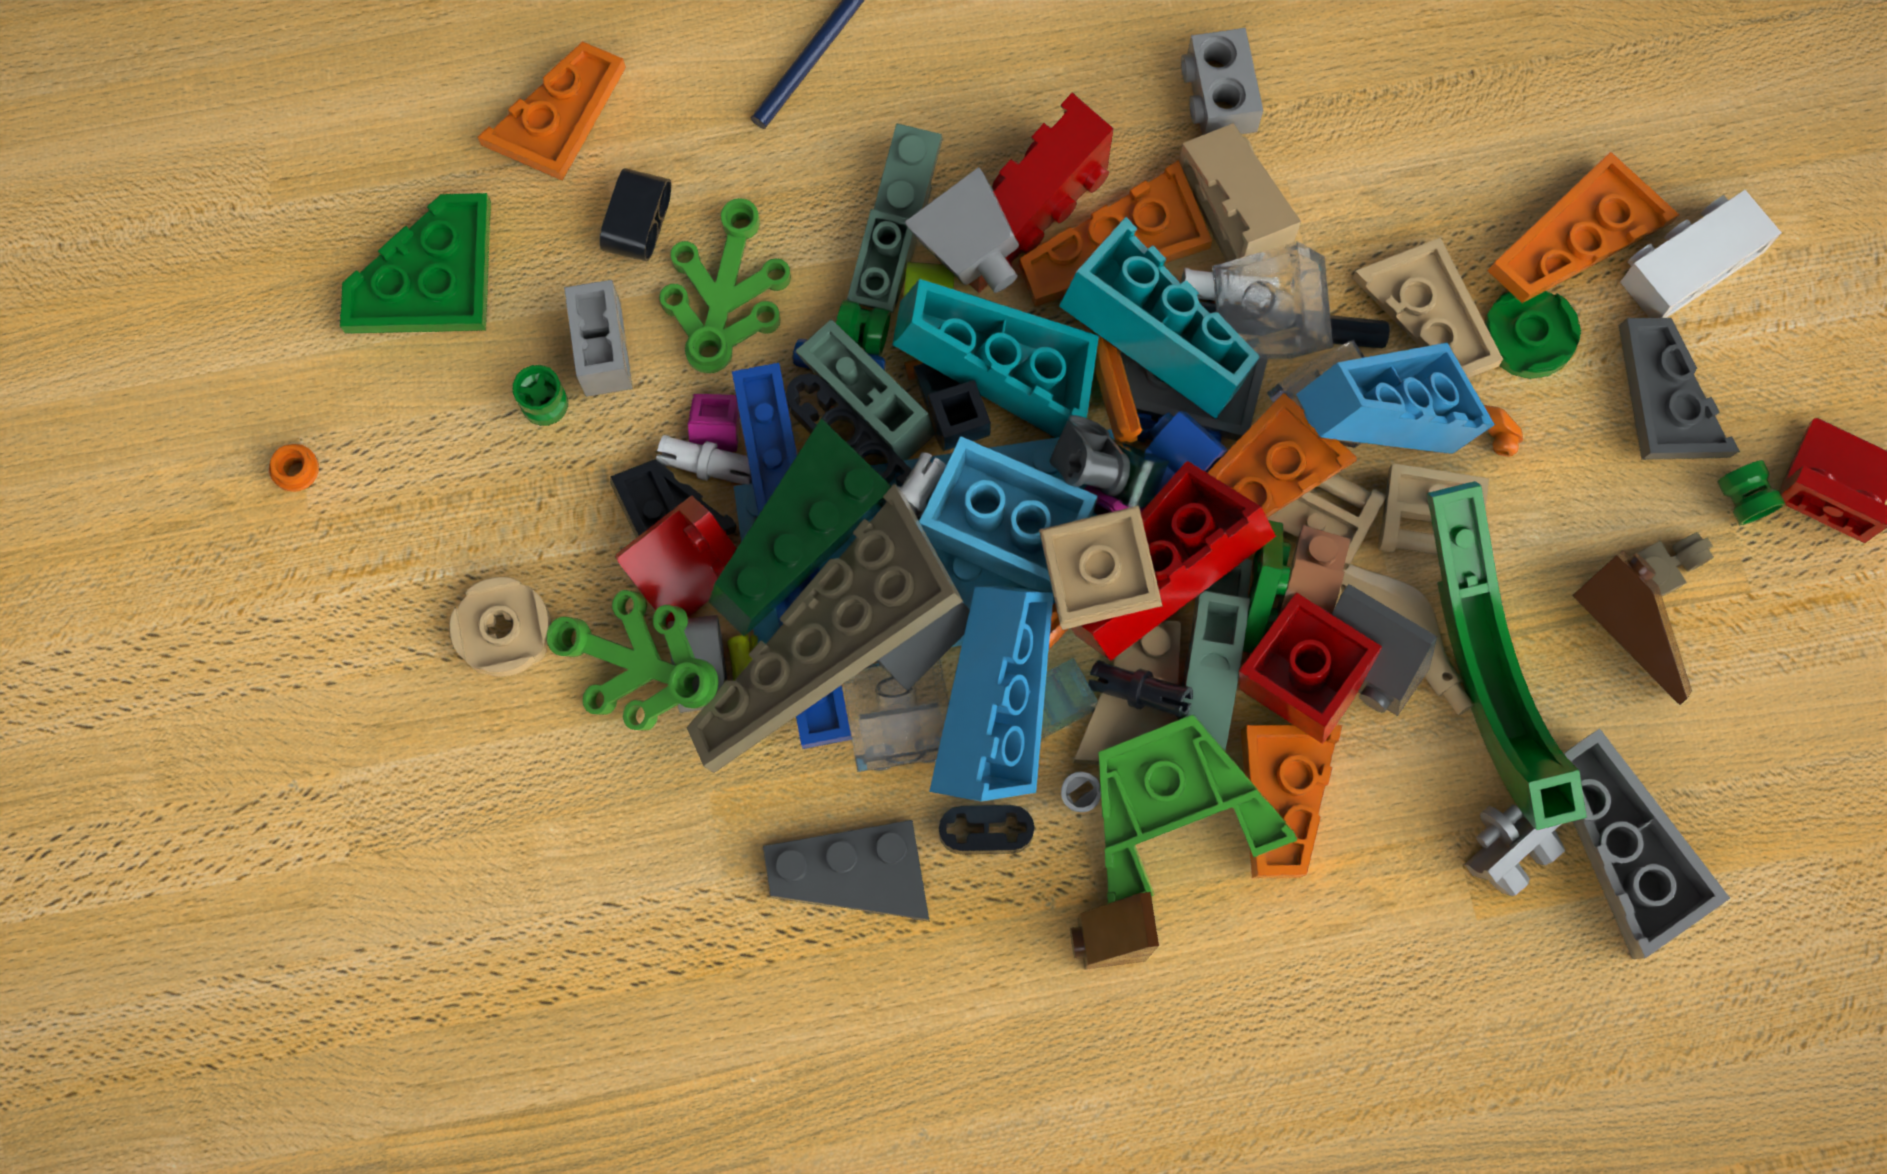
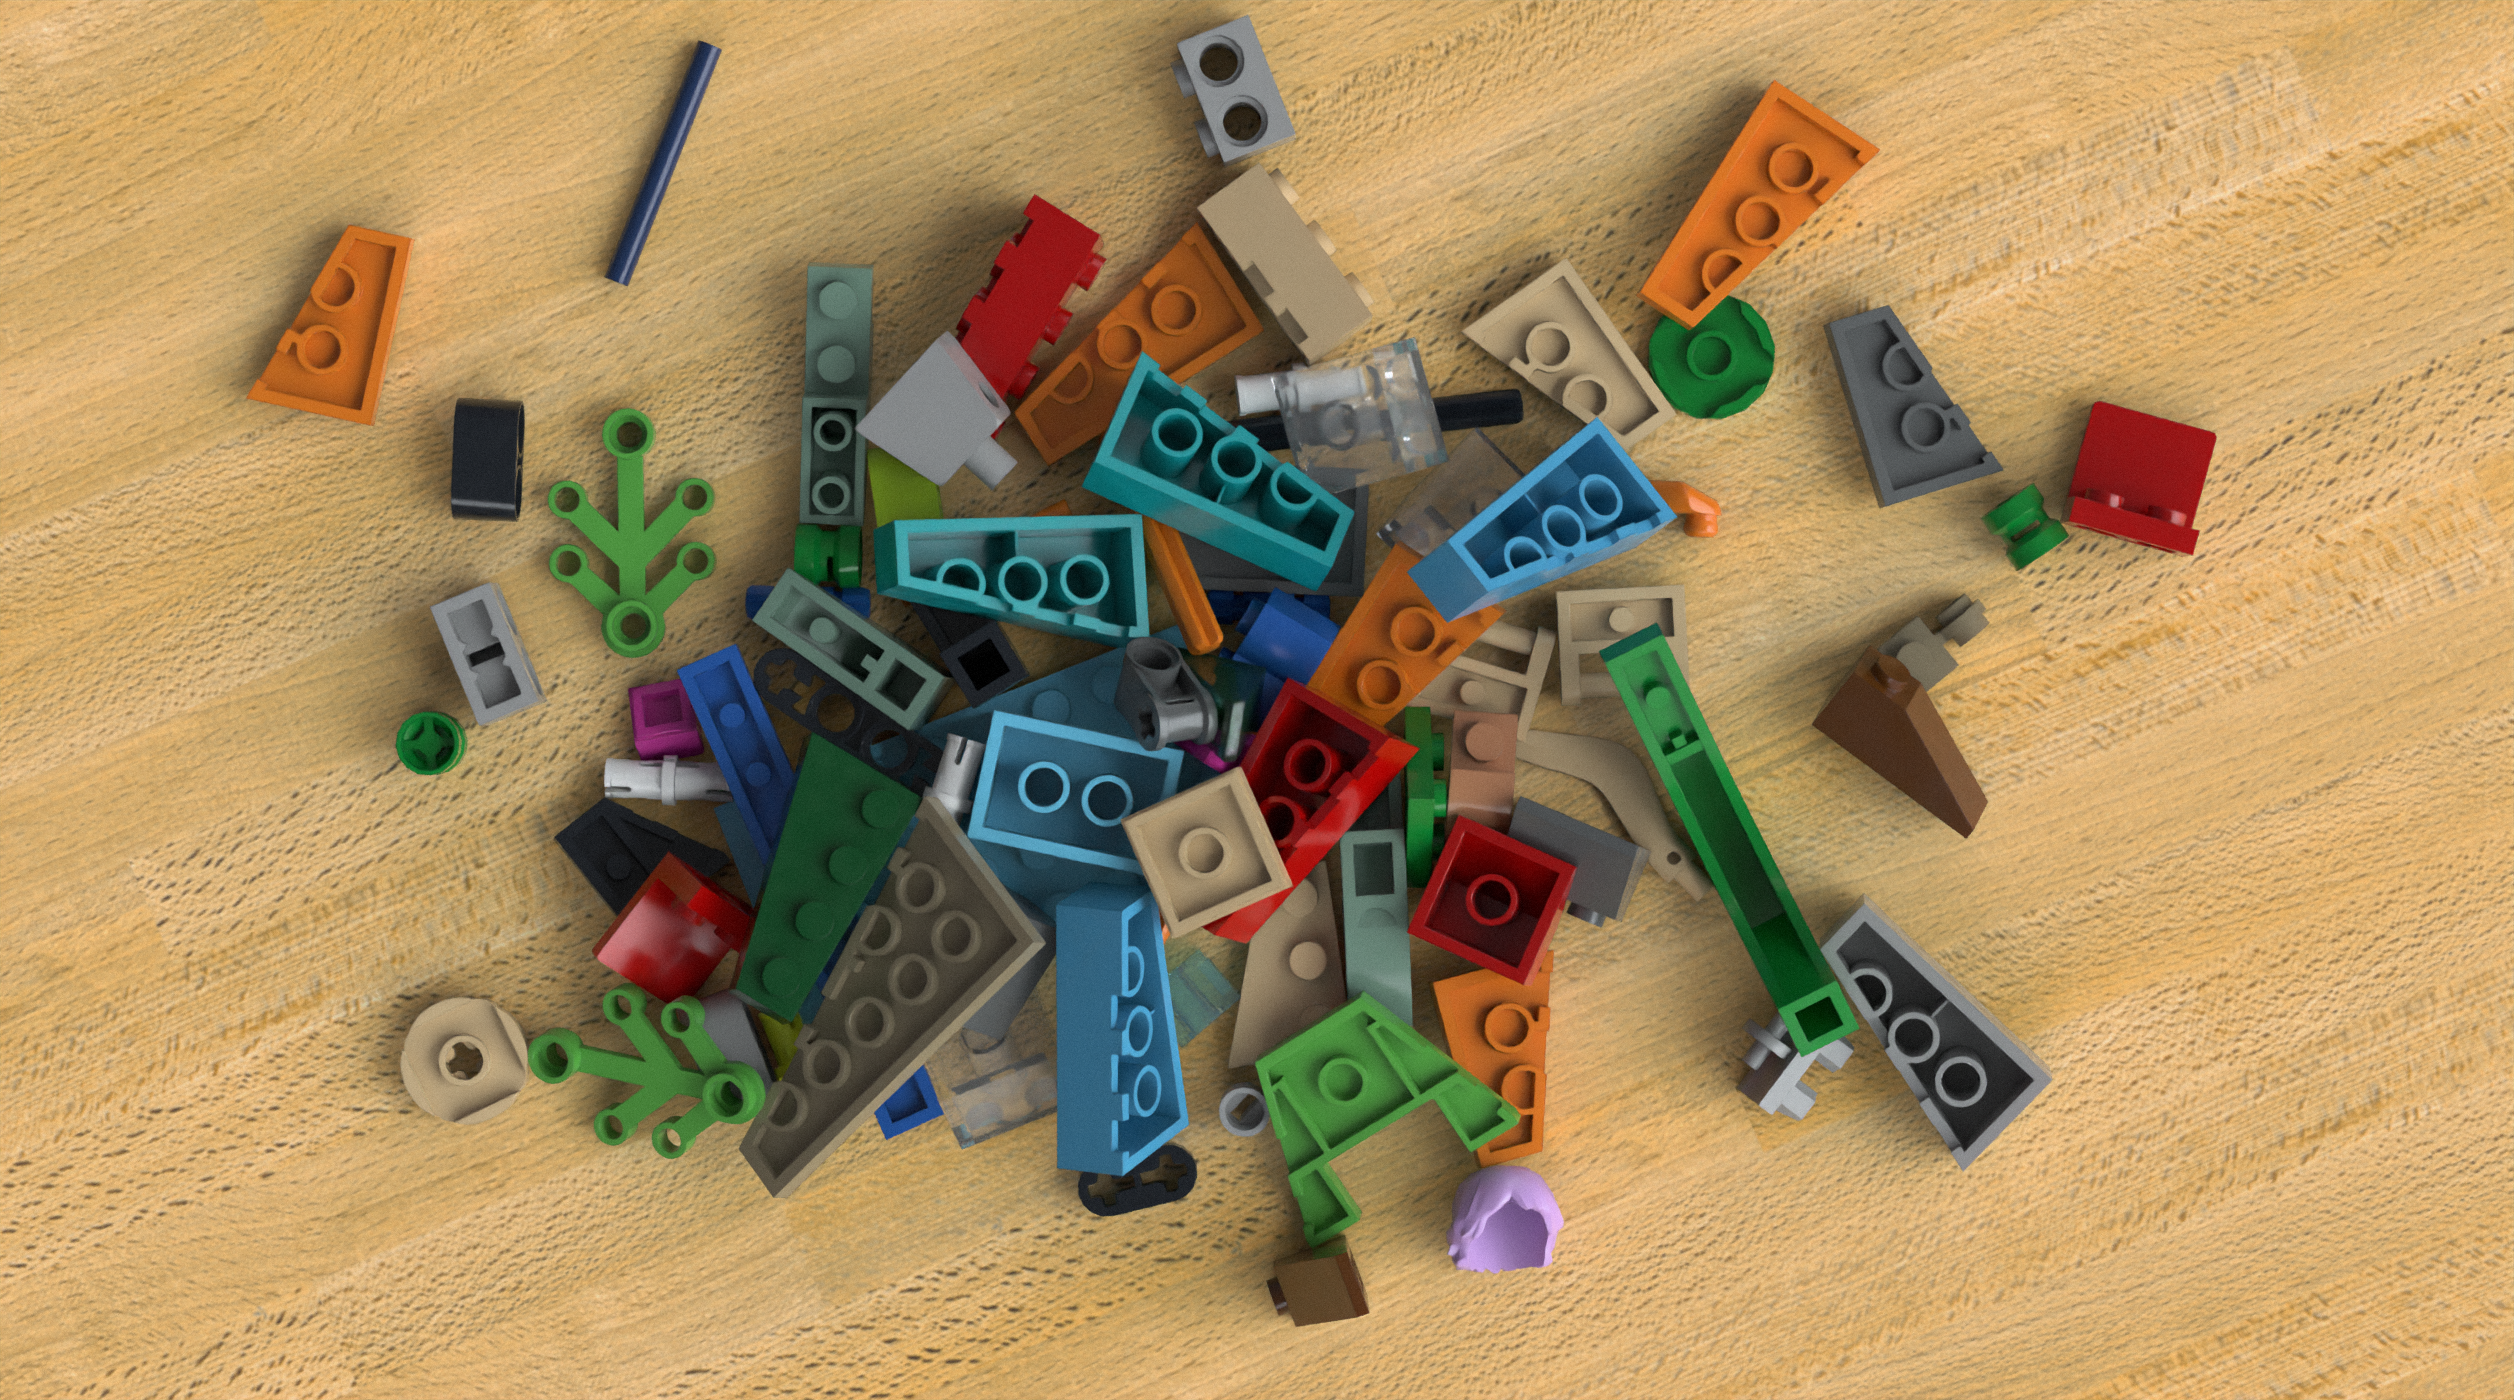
camera: 15 degrees left, 15 degrees up
(285, 458) = (117, 908): orange plate -> none
(426, 274) = (233, 604): green plate -> none
(852, 869) = (984, 1266): dark grey wing -> none
(1140, 689) = (1290, 971): black pin -> none
(1267, 922) = (1503, 1221): none -> lavender hair
(1699, 255) = (1913, 204): white brick -> none

